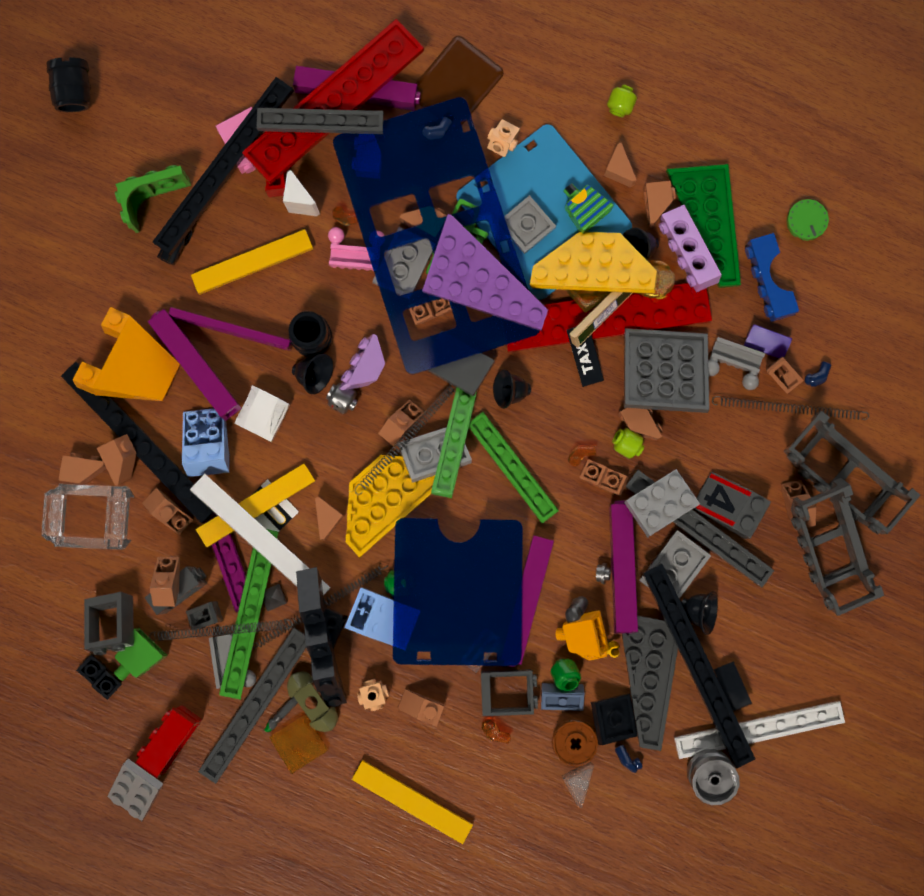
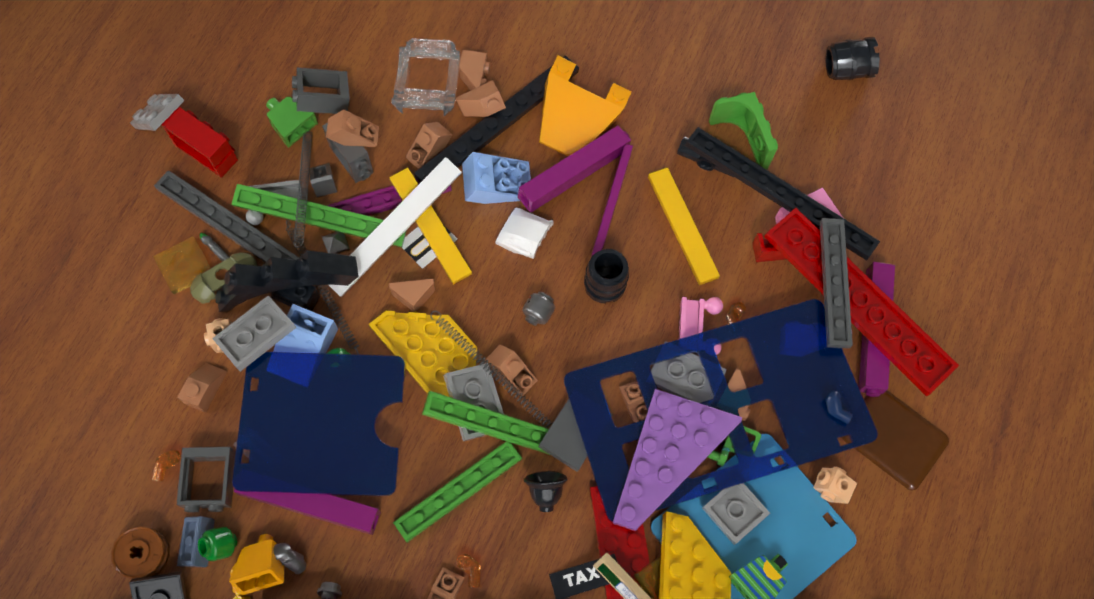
camera: 85 degrees right, 15 degrees down
(99, 675) = (276, 87): black slope -> none
(297, 198) = (753, 264): white slope -> none
(314, 372) = (565, 281): black hat -> none
(365, 365) = (572, 331): lavender slope -> none
(376, 659) = (254, 333): none -> light grey plate
(412, 802) = (104, 377): yellow tile -> none
(578, 782) = (93, 554): clear slope -> none

